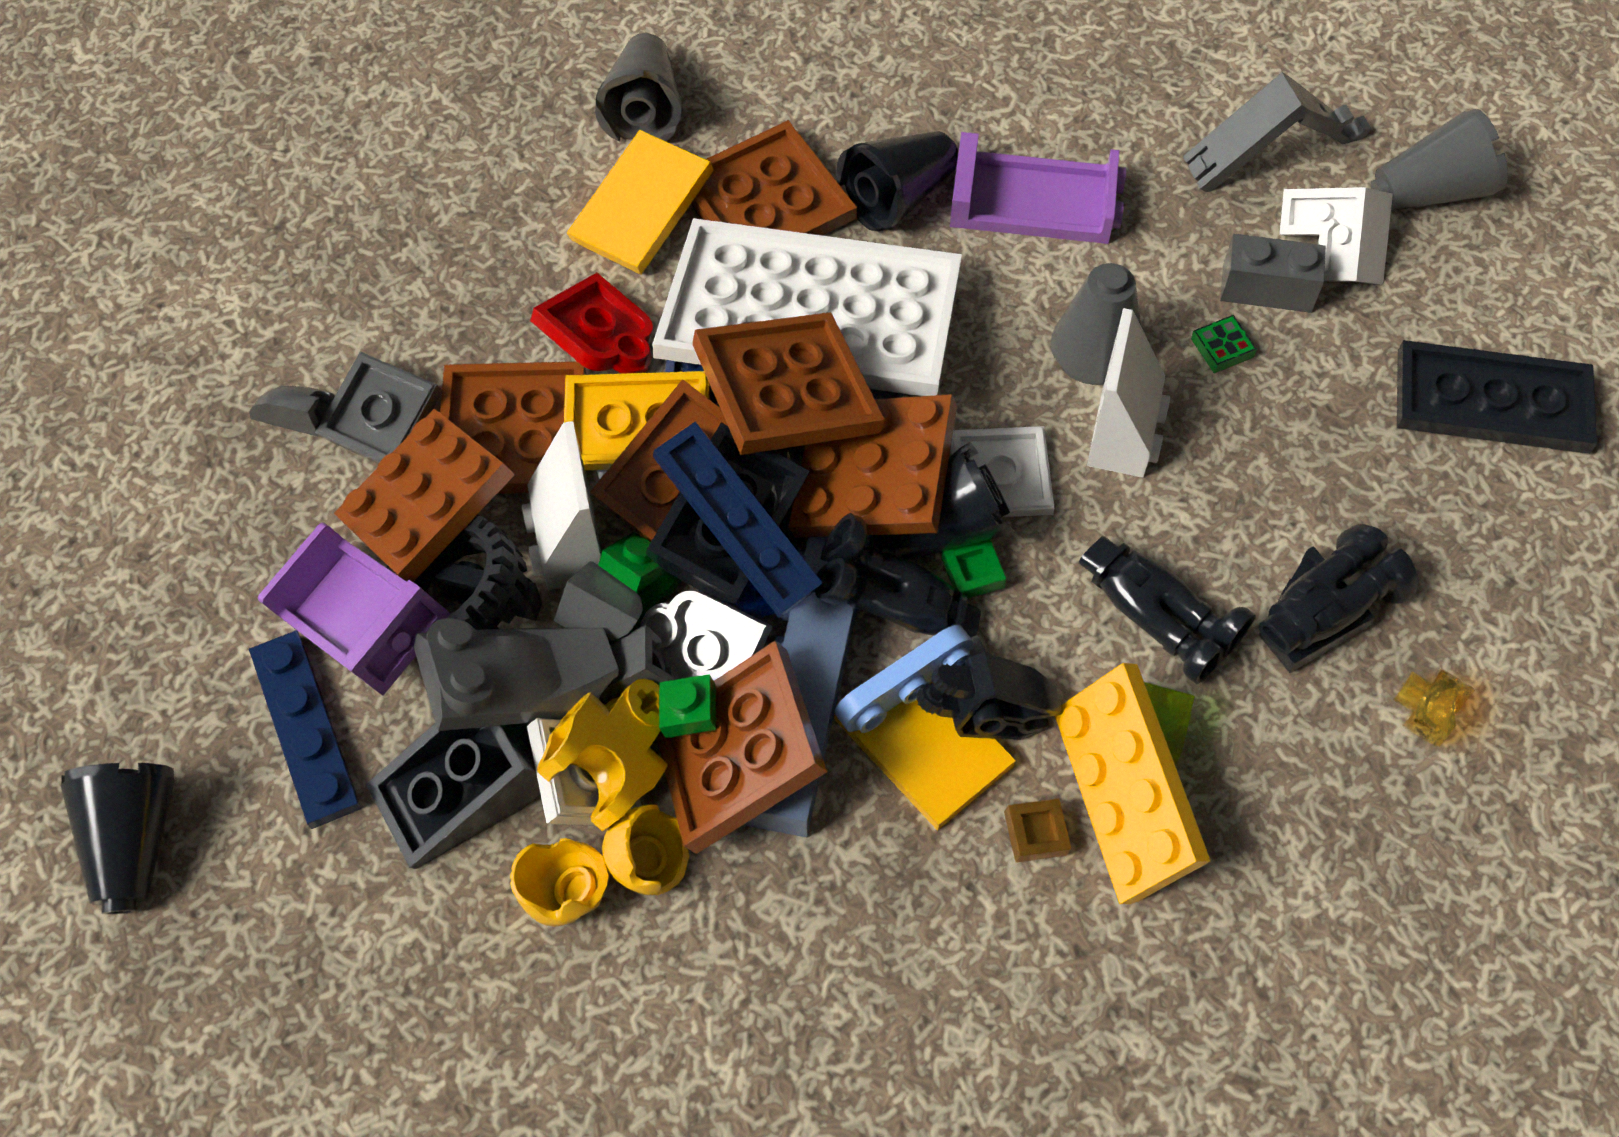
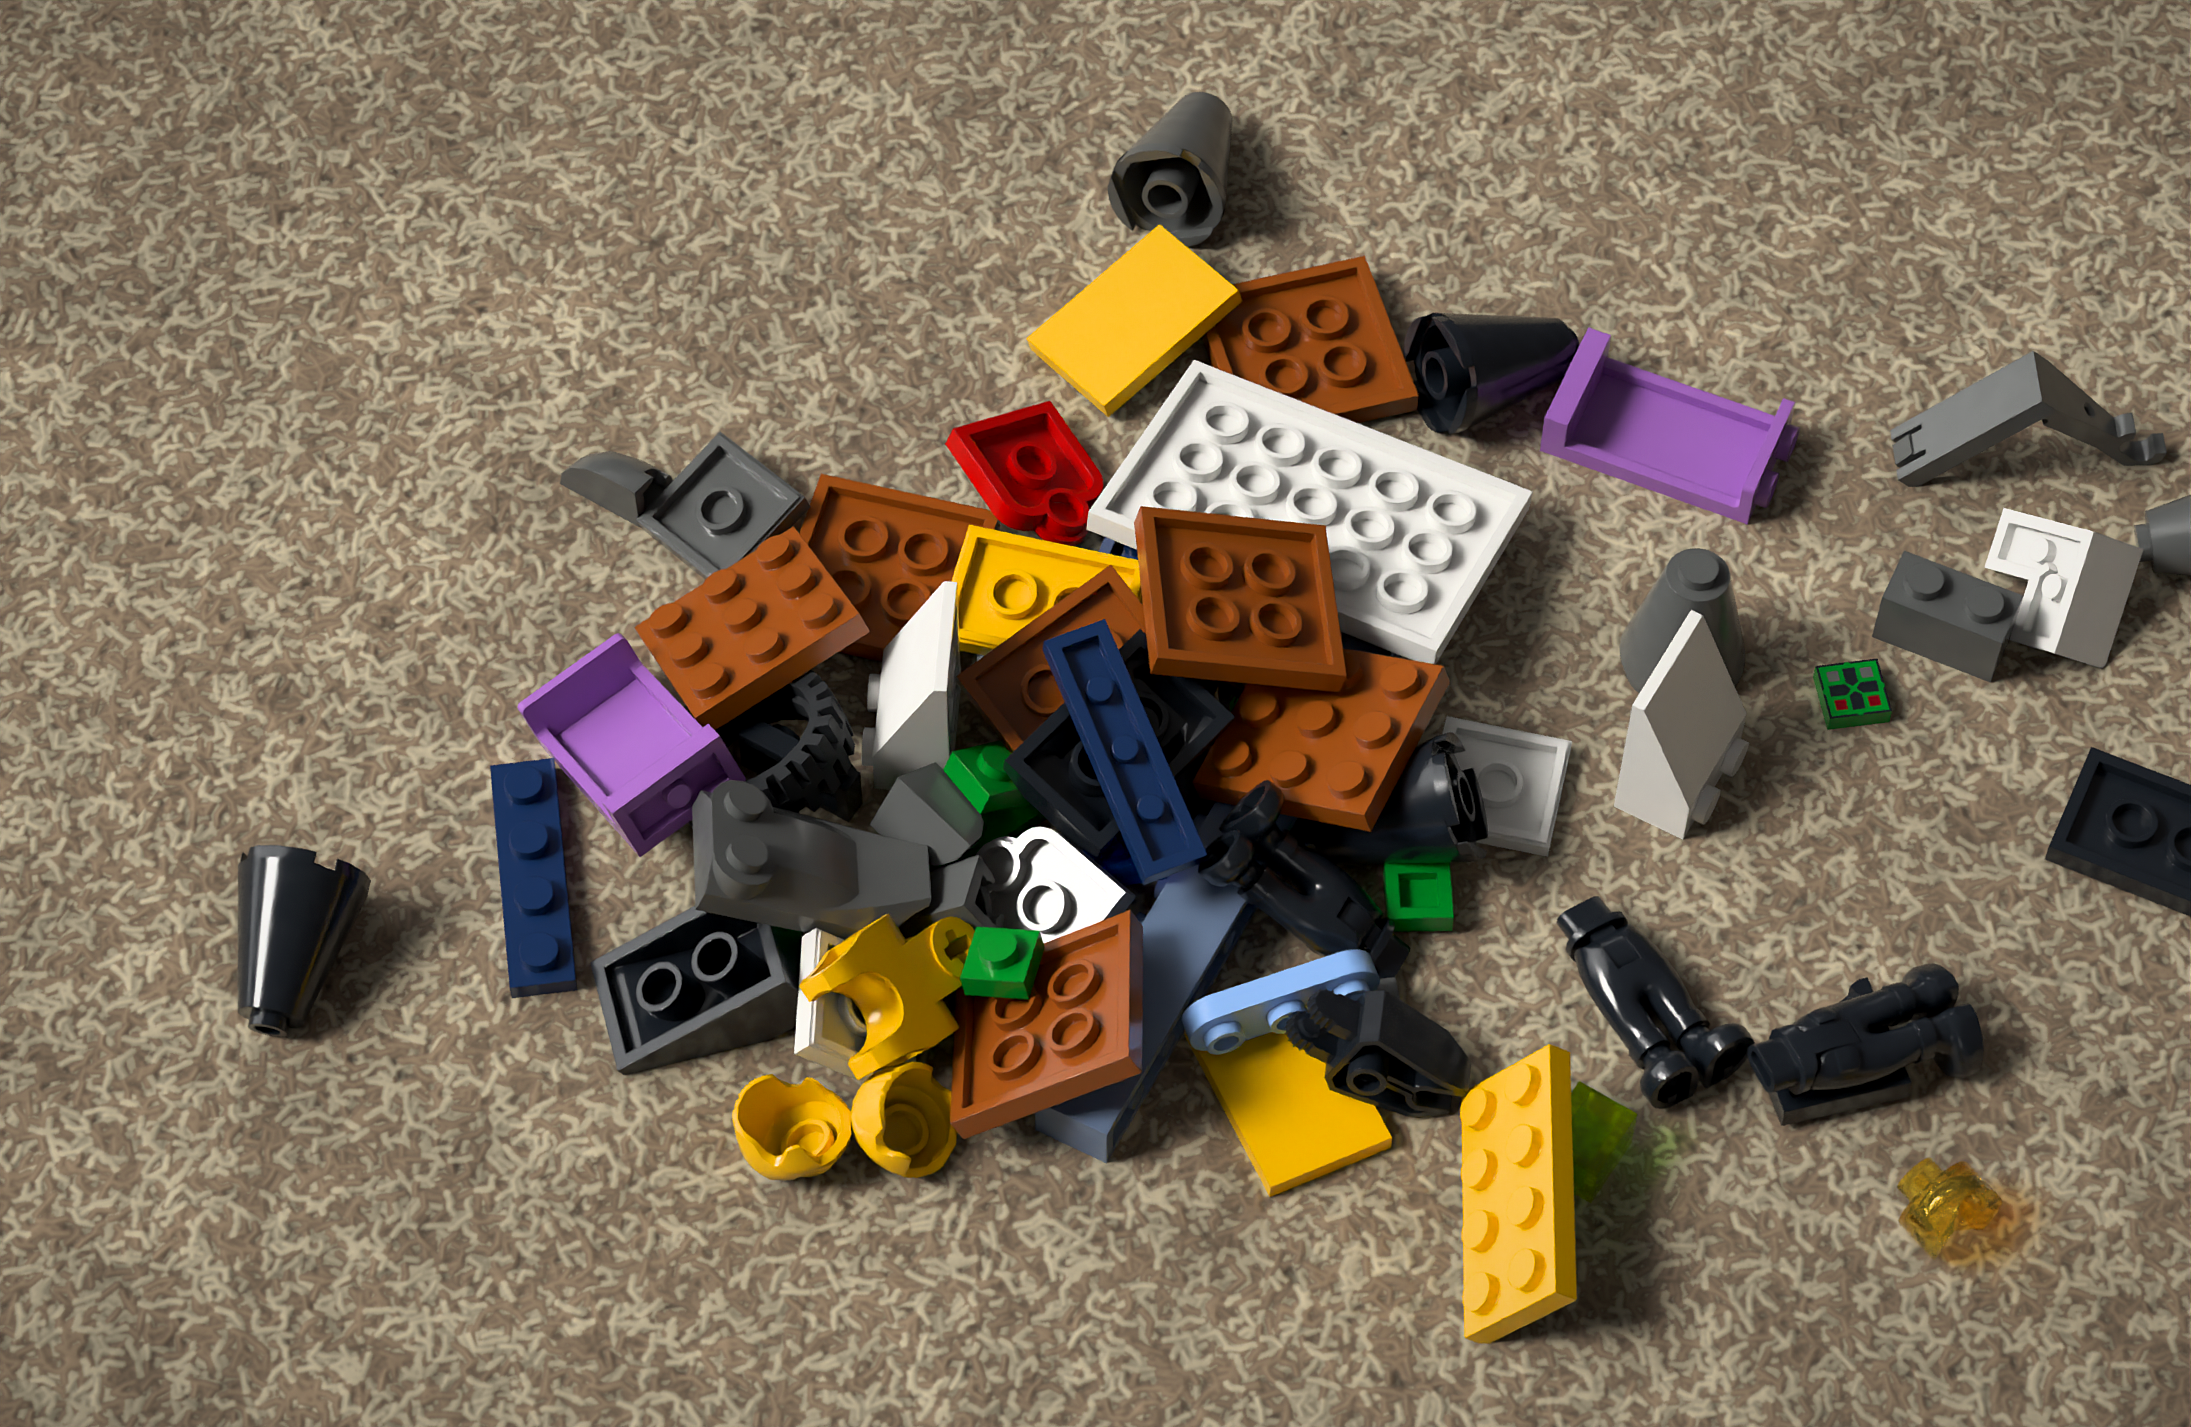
camera: 15 degrees right, 5 degrees down
(1037, 830) = (1390, 1225): pearl gold plate -> none

